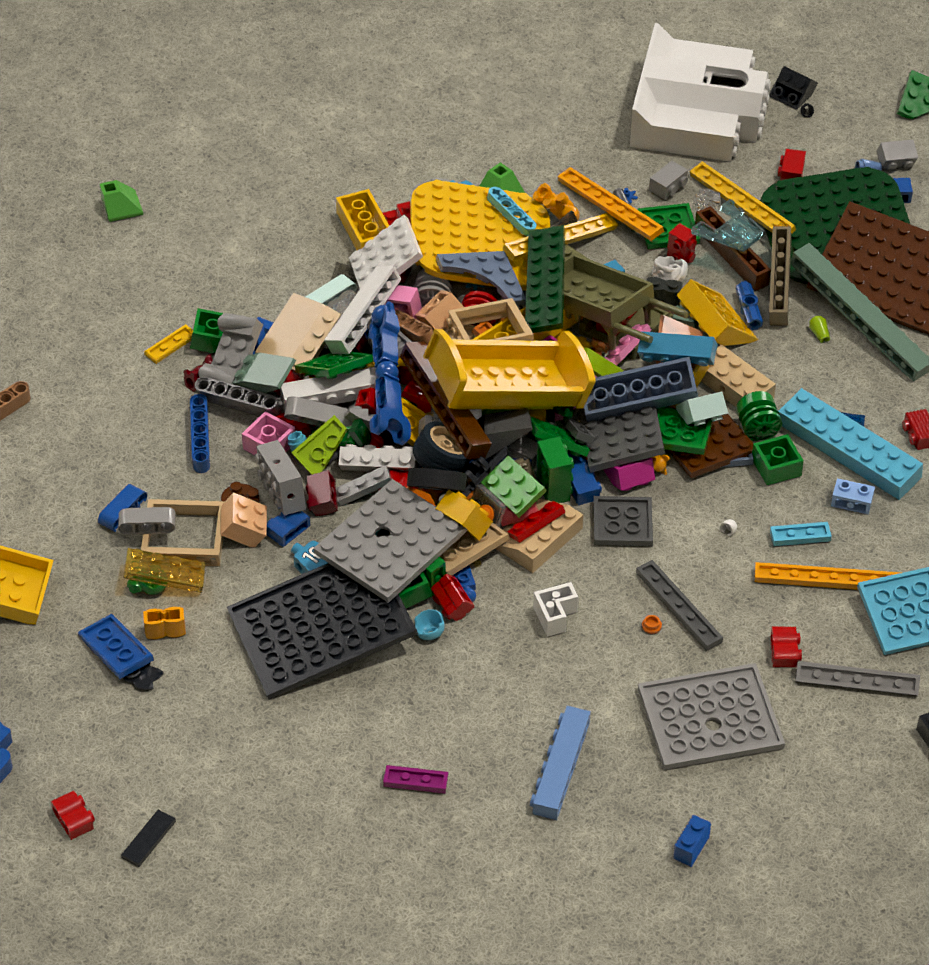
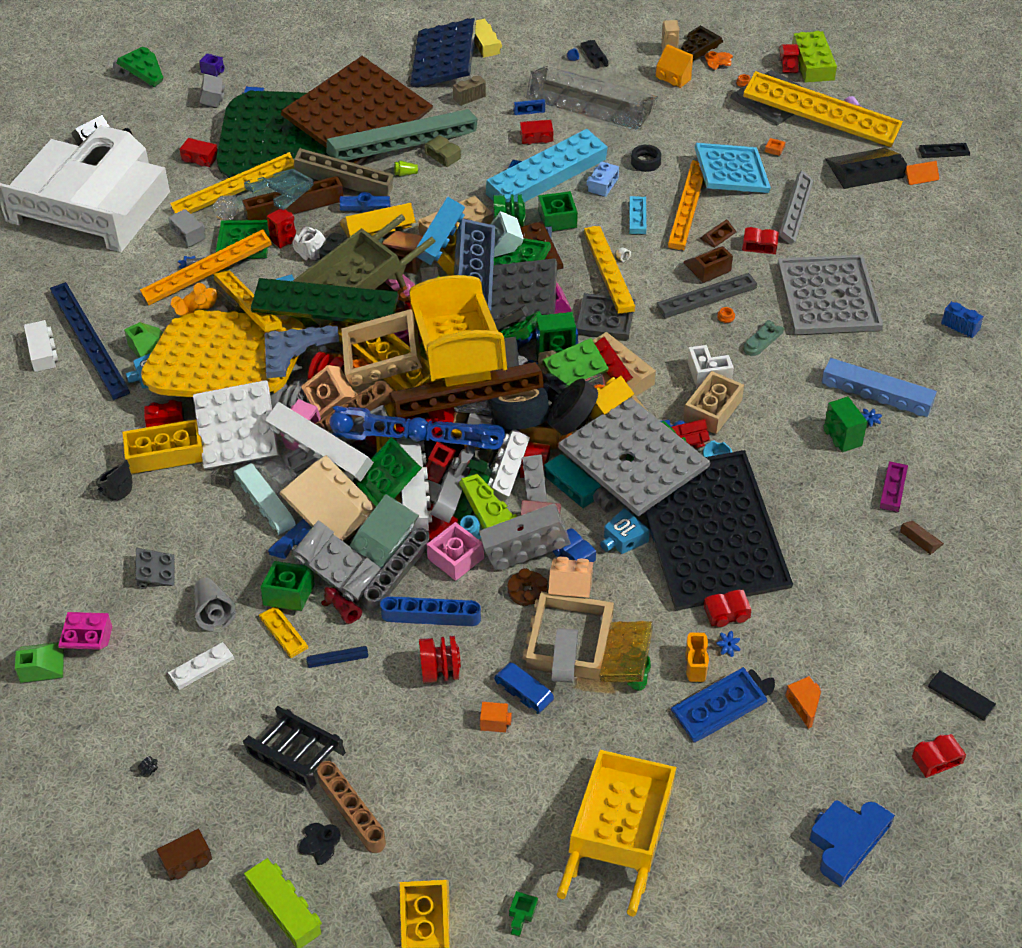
camera: 80 degrees left, 0 degrees up
(24, 287) = (148, 766): none -> black plate
(36, 352) = (289, 765): none -> black fence
(88, 490) = (495, 717): none -> orange brick
(125, 710) = (804, 698): none -> orange slope
(128, 299) = (200, 665): none -> white plate
(139, 440) = (439, 659): none -> red wheel
(146, 382) = (337, 656): none -> dark blue axle
(147, 220) = (86, 631): none -> dark pink slope
(188, 288) = (212, 605): none -> light grey cone
(189, 651) = (728, 644): none -> blue plant
(227, 248) = (154, 568): none -> dark grey hinge
(230, 646) = (727, 608): none -> red brick
(316, 202) = (116, 482): none -> black helmet
(350, 804) = (920, 537): none -> reddish brown slope
(480, 119) = (41, 345): none -> white brick
(487, 725) = (845, 424): none -> green brick
(498, 198) = (203, 326): medium azure beam -> none
(501, 147) = (90, 341): none -> dark blue plate
(503, 615) = (714, 401): none -> tan brick
(517, 757) = (871, 417): none -> blue plant
(622, 659) = (762, 338): none -> sand green plate
(696, 514) = (609, 270): none -> yellow plate
(728, 600) = (710, 264): none -> reddish brown slope
(791, 611) = (719, 234): none -> reddish brown slope
(859, 355) = (443, 151): none -> olive brick
(867, 163) = (215, 112): medium blue cone -> none
(902, 543) = (646, 165): none -> black tyre

